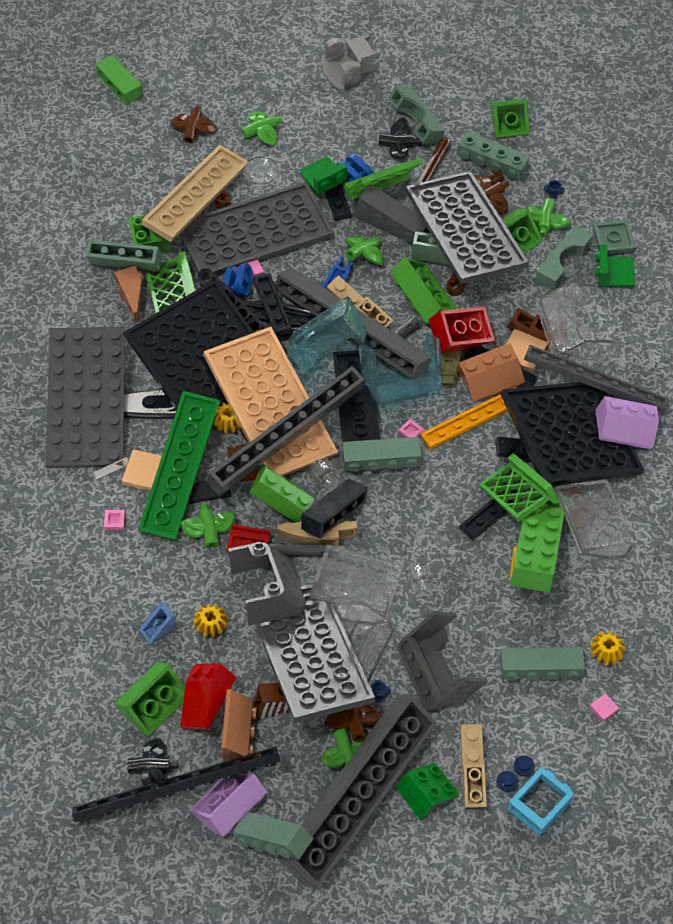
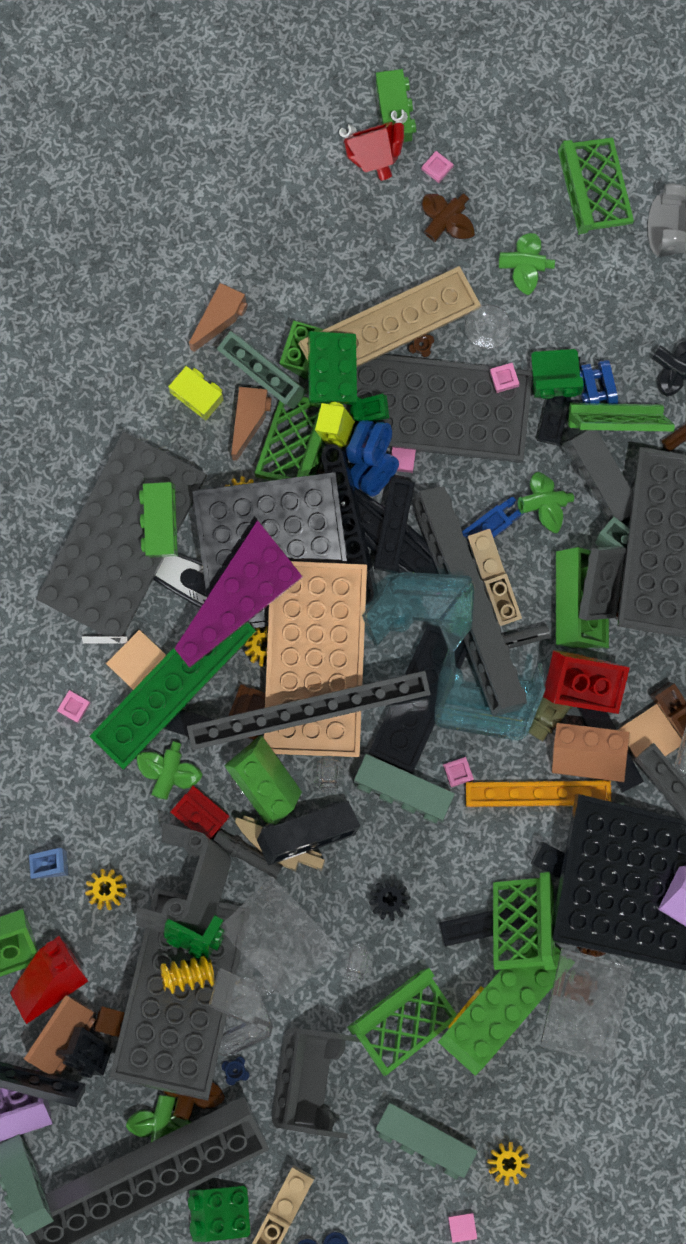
camera: 35 degrees right, 20 degrees up
(74, 240) = (219, 315): none -> nougat slope
(85, 292) = (196, 392): none -> neon yellow brick
(109, 365) = (159, 520): none -> bright green brick
(121, 102) = (376, 146): none -> torso
(168, 102) = (437, 167): none -> bright pink tile
(174, 225) = (332, 367): none -> green plate
(194, 258) = (335, 424): none -> neon yellow brick
(197, 374) = (247, 586): none -> magenta wing
(213, 245) = (371, 408): none -> green bracket
(225, 261) = (369, 443): none -> blue brick
(262, 730) = (86, 1053): none -> black bracket
(270, 75) = (576, 184): none -> bright green fence
(290, 191) = (504, 377): none -> bright pink tile
(296, 606) = (196, 944): none -> green bracket
(307, 629) = (187, 974): none -> yellow piece
(416, 527) = (395, 894): none -> black gear
(434, 267) = (603, 583): none -> dark grey plate
(461, 588) = (387, 1007): none -> bright green fence

